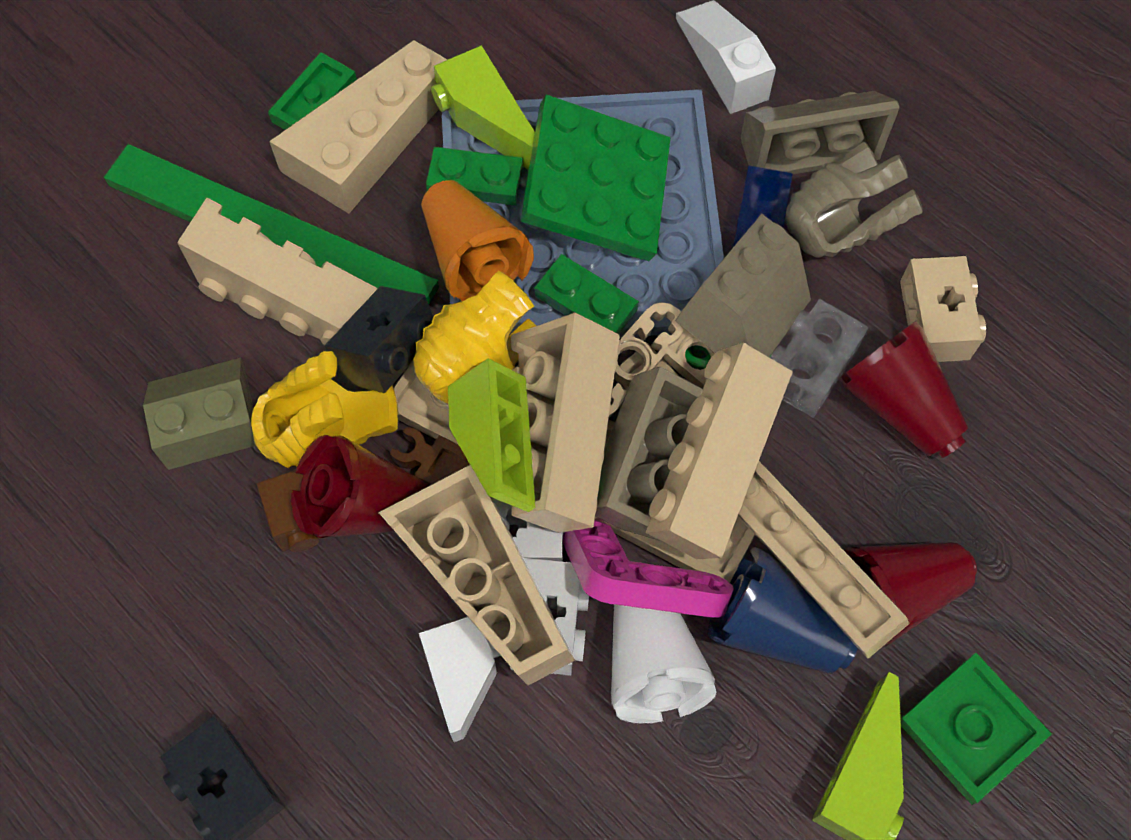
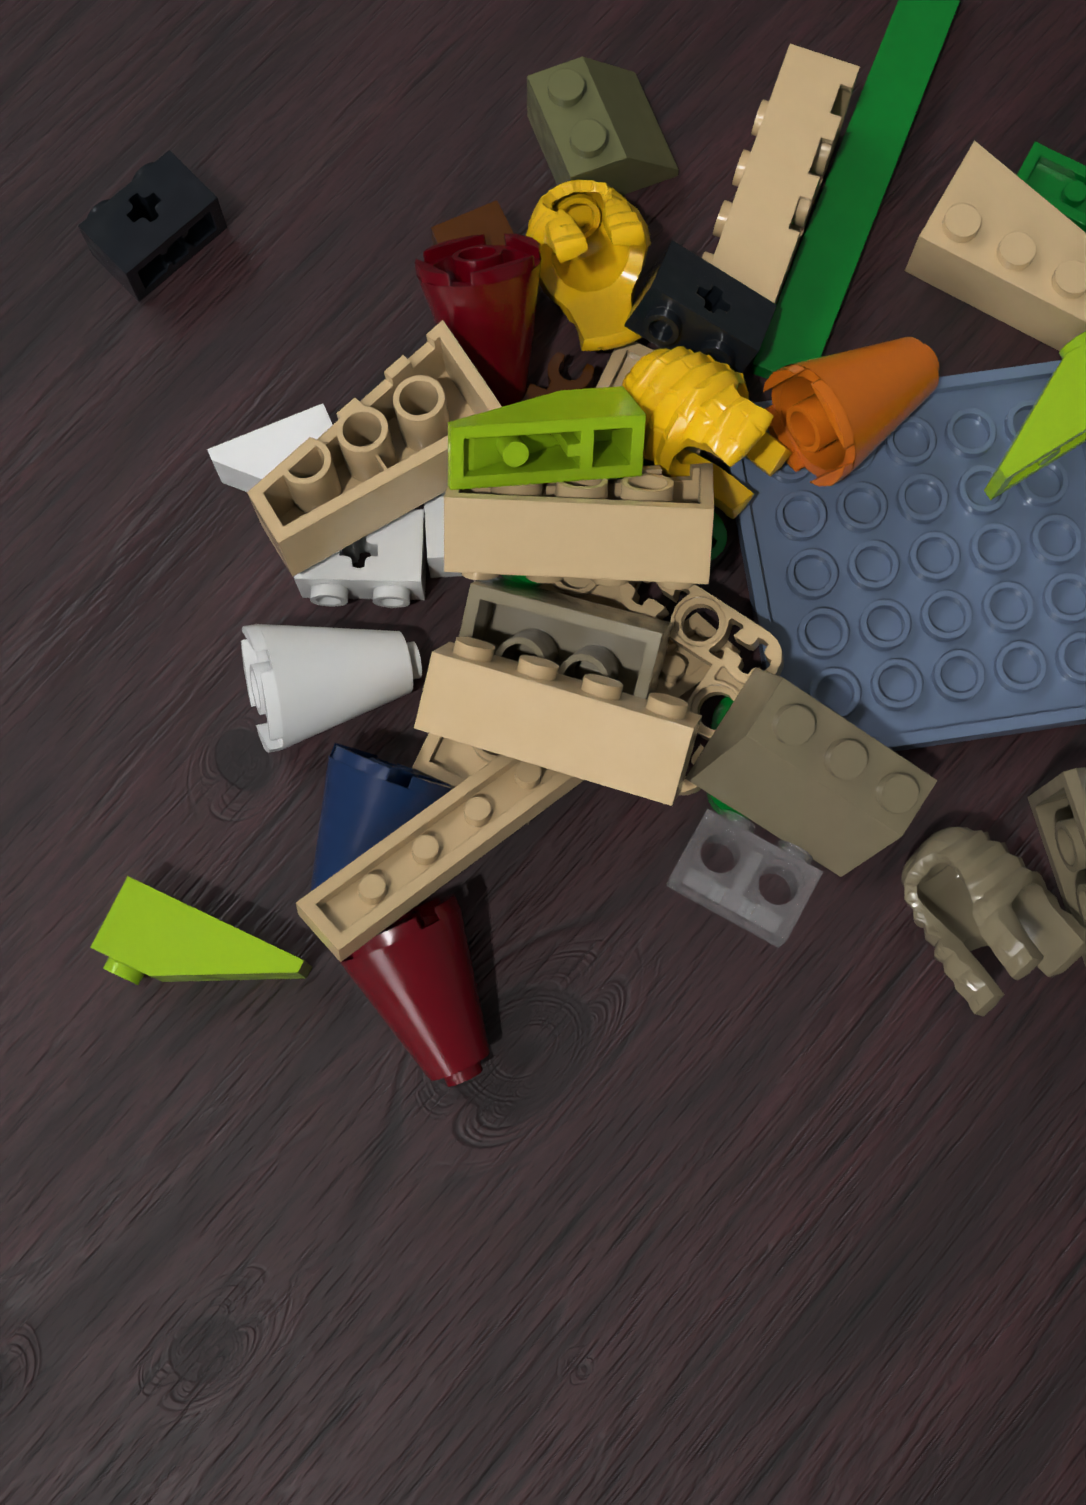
camera: 85 degrees right, 10 degrees up
(485, 175) = (966, 410): green plate -> none
(577, 290) = (793, 566): green plate -> none
(596, 179) = (970, 558): green plate -> none
(615, 580) = (392, 628): dark pink beam -> none
(764, 193) = (979, 801): clear blue plate -> none
(910, 392) = (699, 999): dark red cone -> none
(942, 300) = (871, 1033): tan brick -> none
(974, 728) = (250, 1079): green plate -> none

